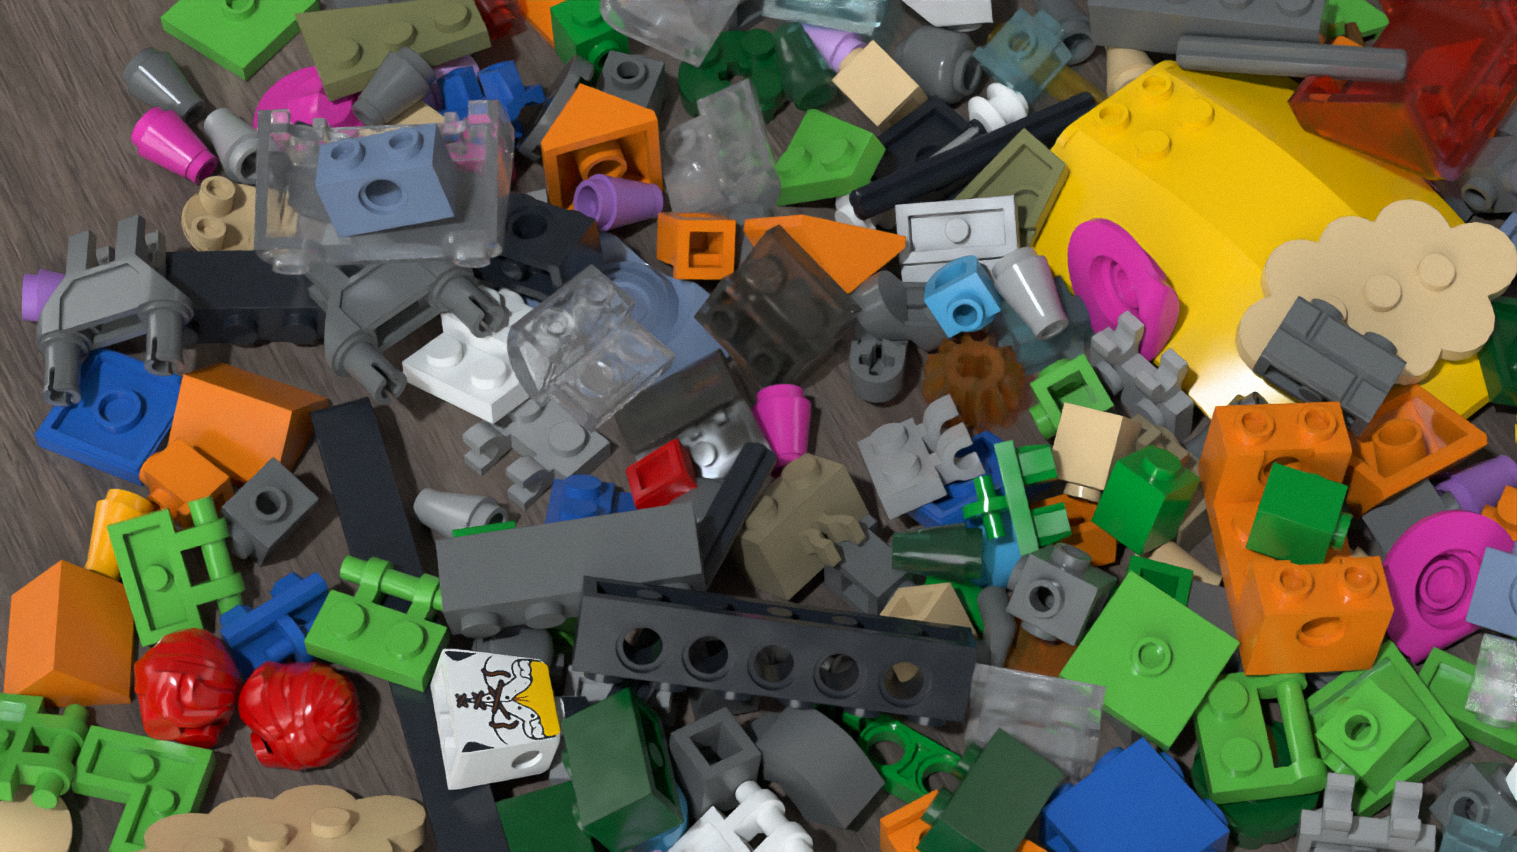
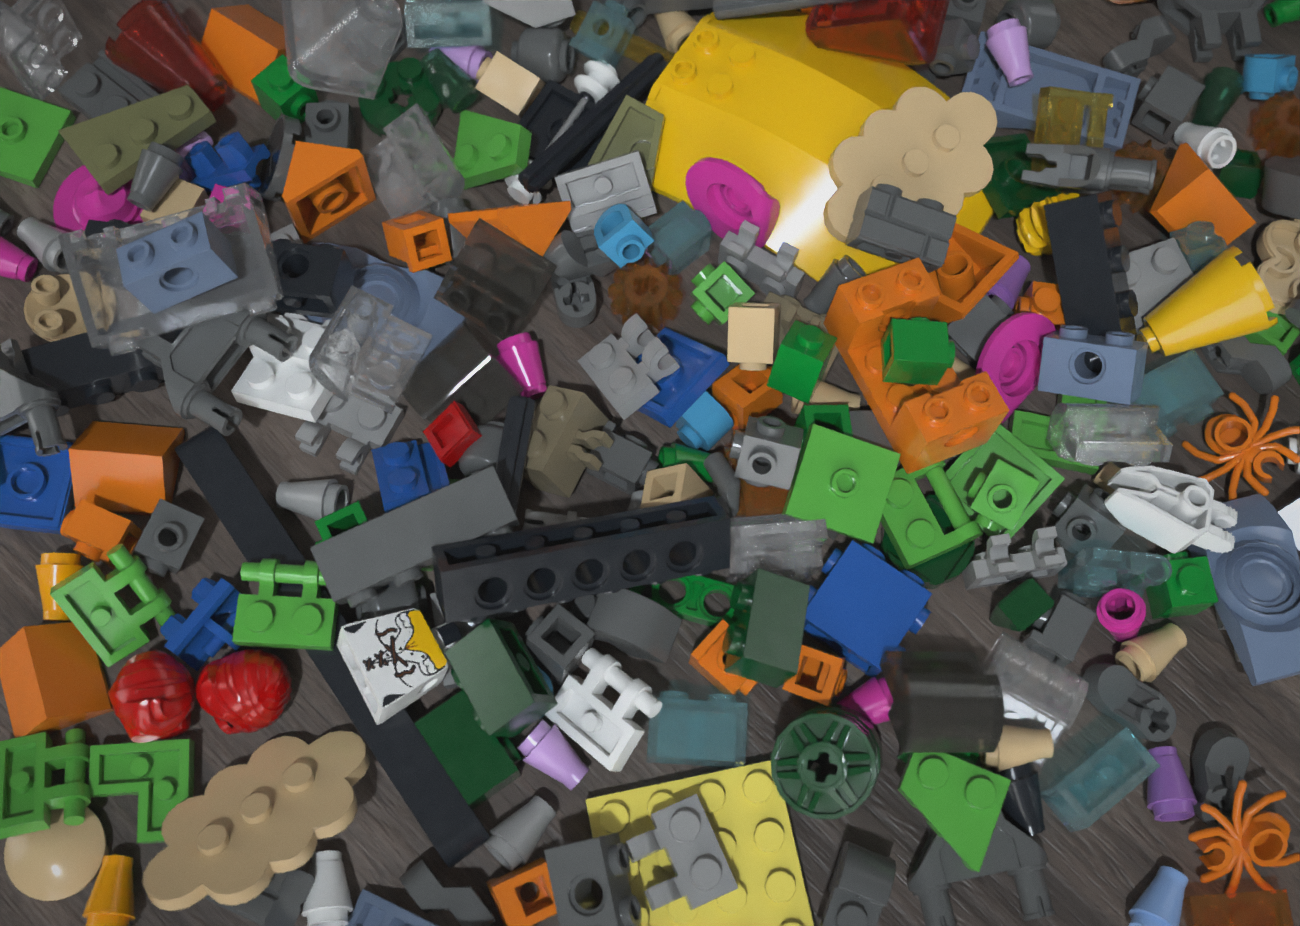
camera: 25 degrees left, 15 degrees up
(617, 201) = (347, 221): medium lavender cone -> none
(940, 552) = (671, 439): clear green cone -> none
(1020, 469) = (731, 404): green hips -> none
(1029, 289) = (671, 221): light grey cone -> none

